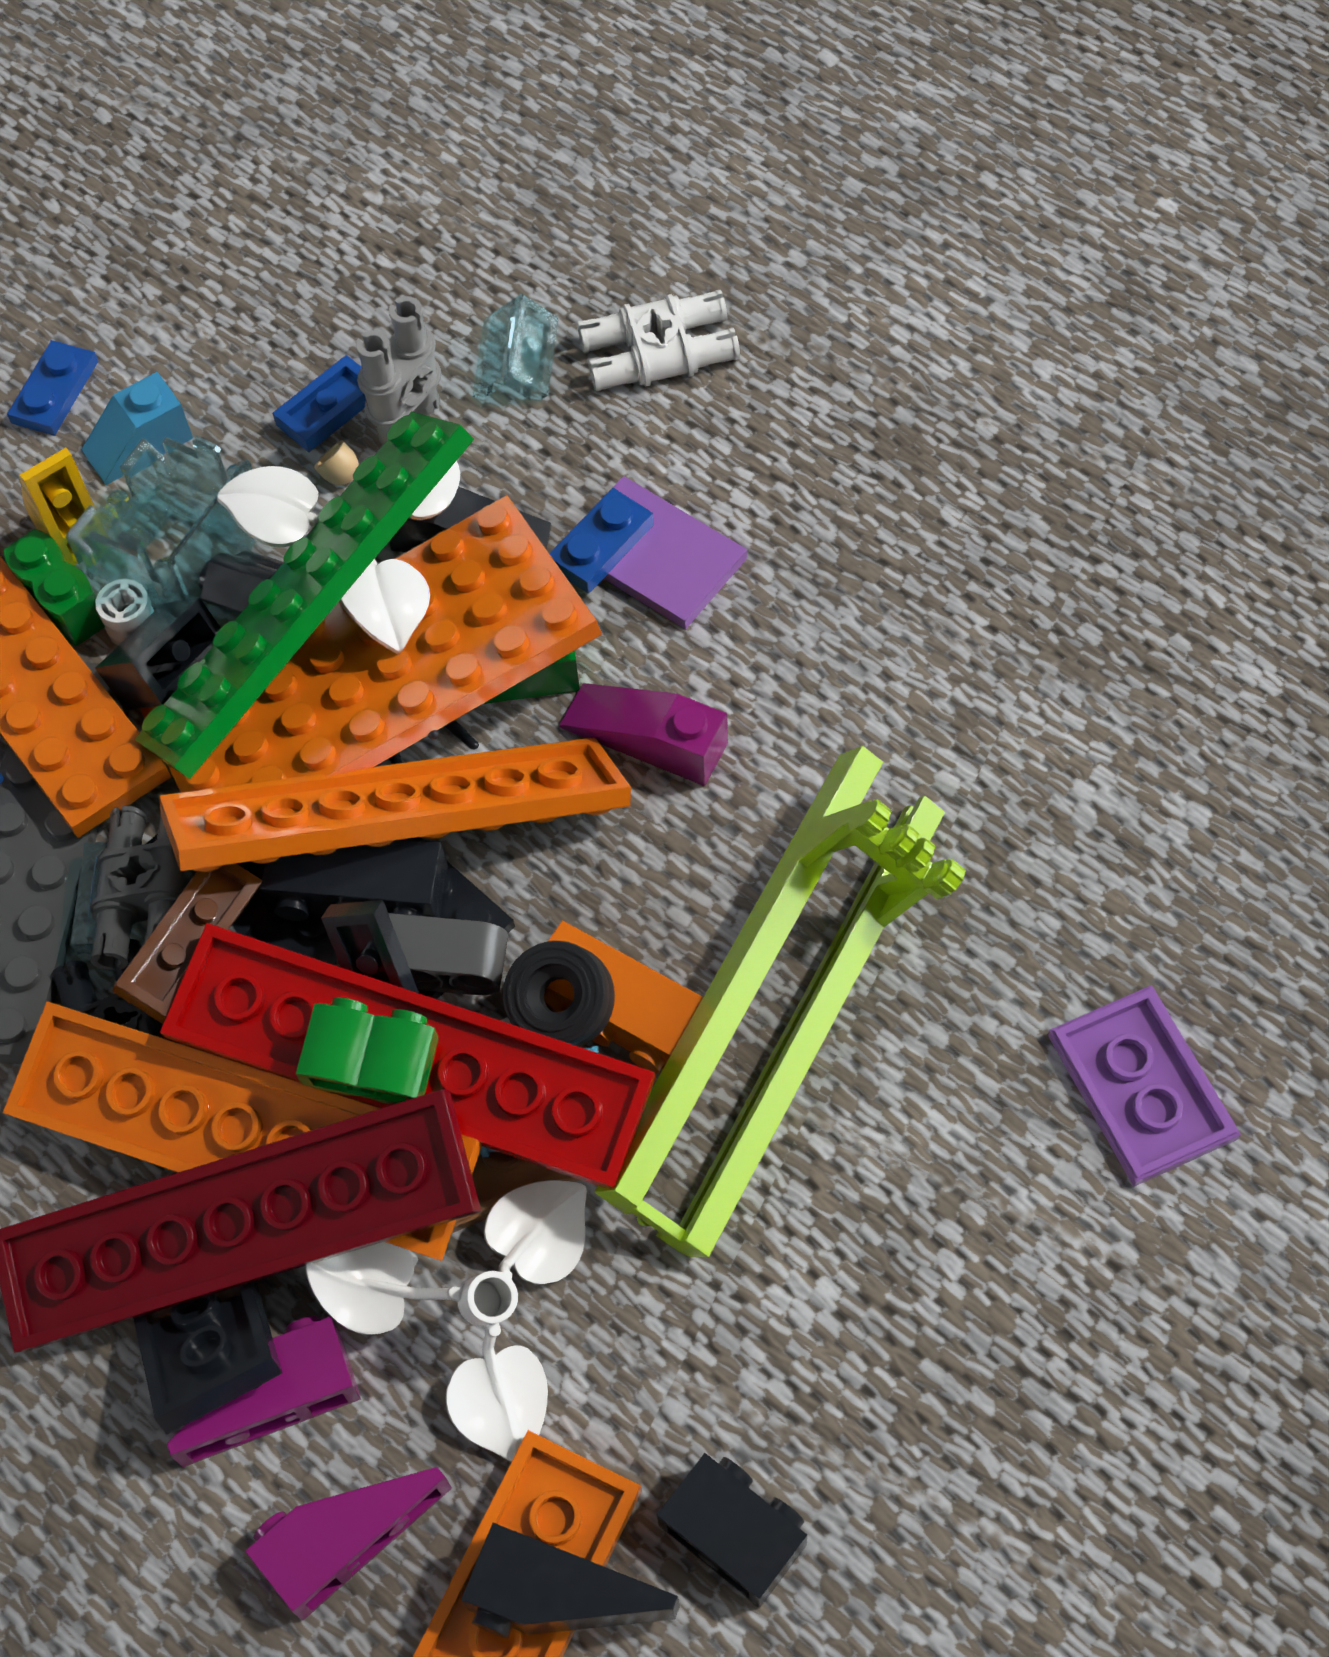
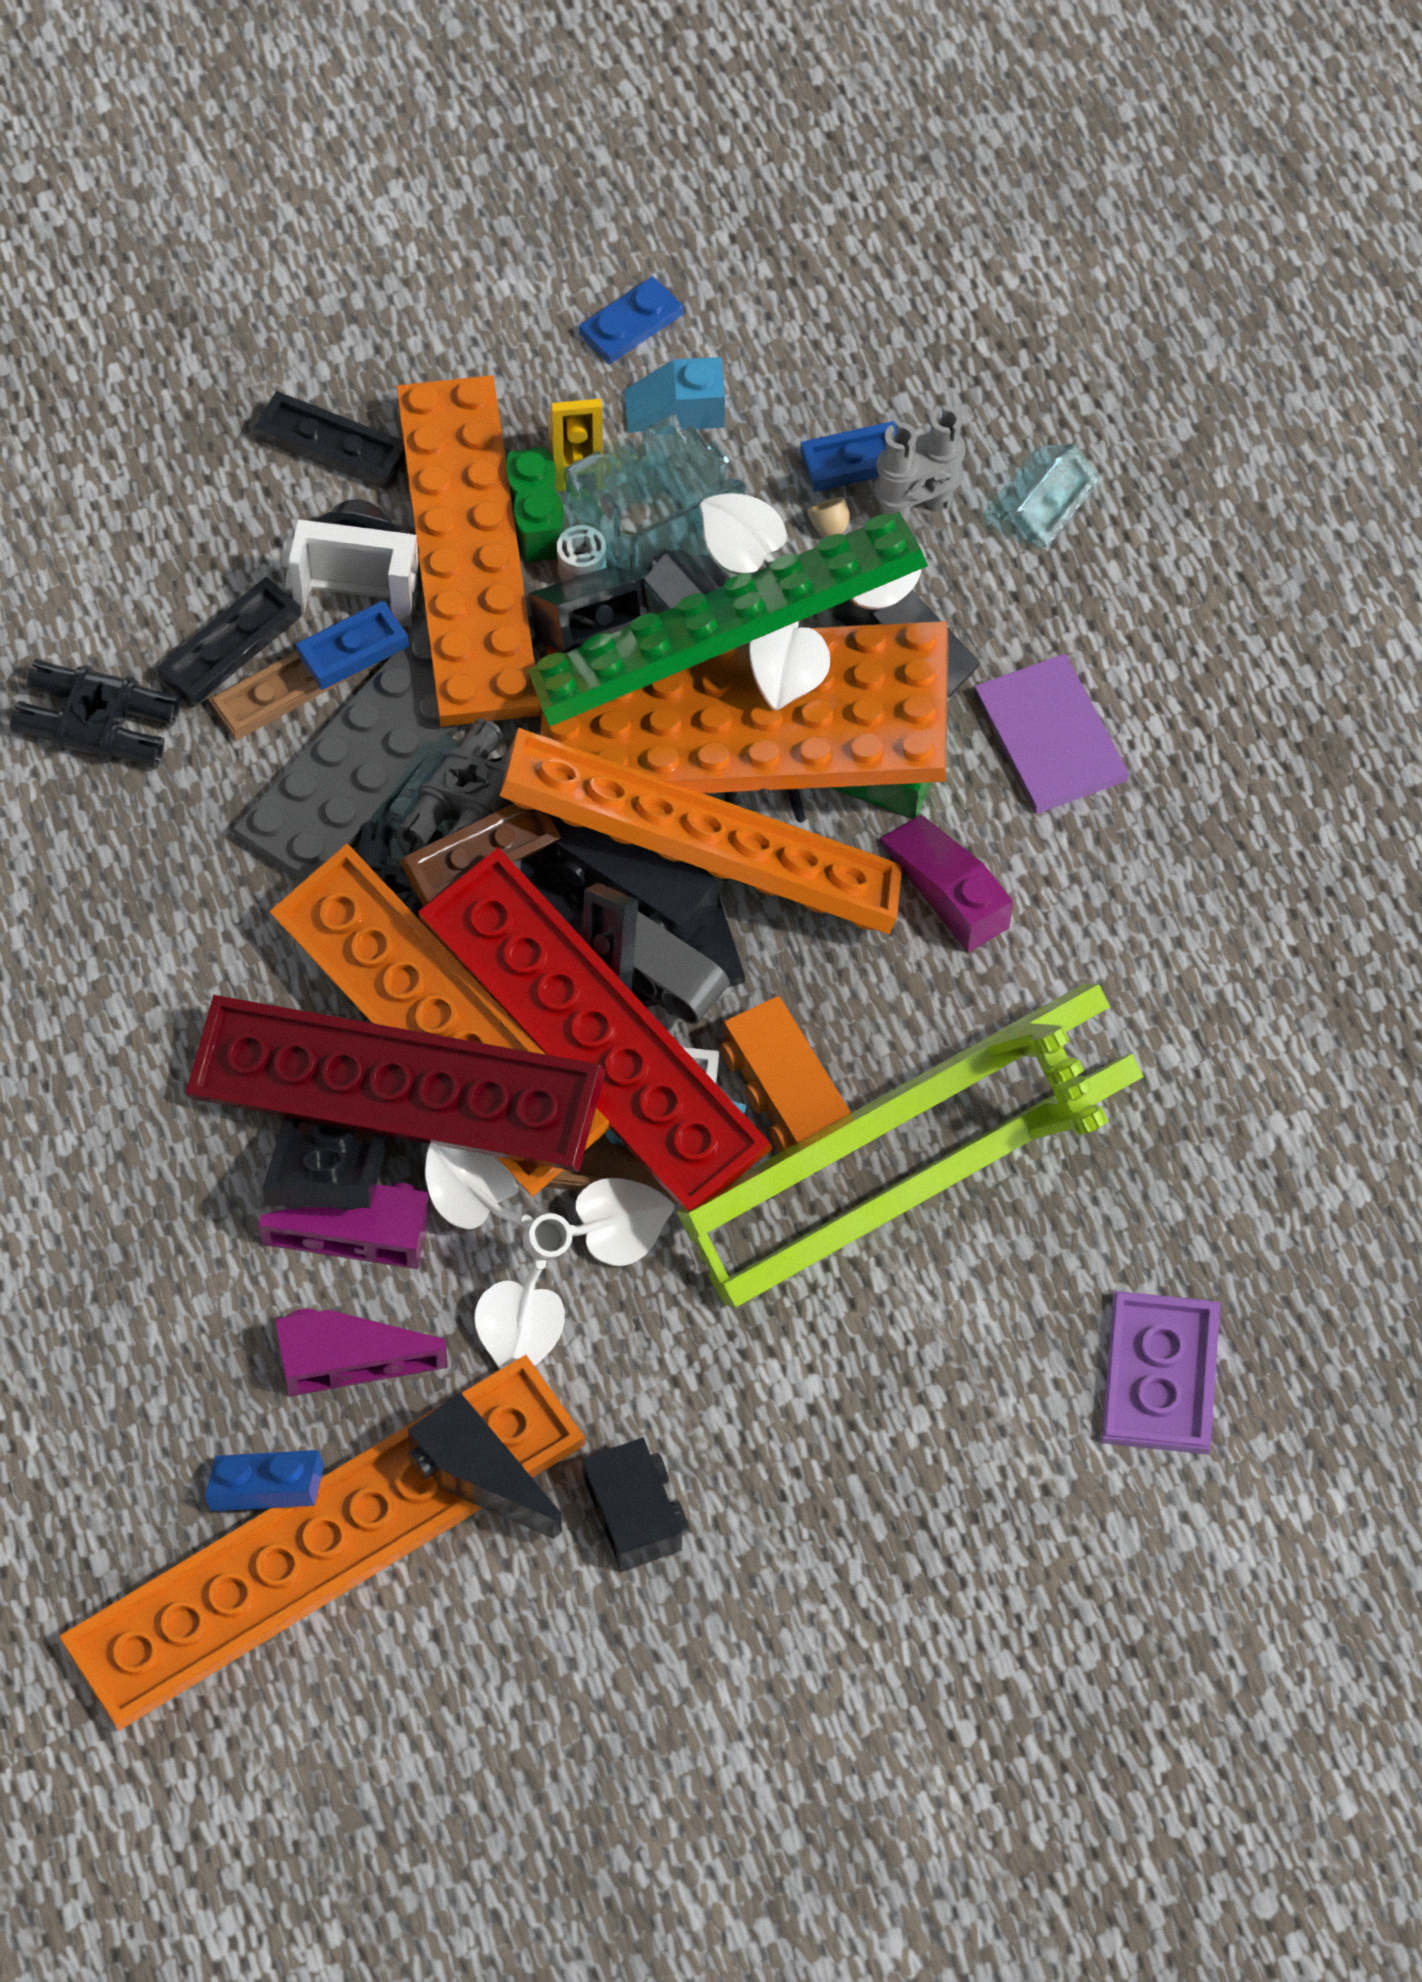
camera: 25 degrees right, 0 degrees up
(367, 1053) = (560, 1009): green brick -> none
(548, 962) = (767, 1053): black tyre -> none
(601, 539) = (1008, 700): blue plate -> none
(648, 357) = (1183, 566): white pin -> none

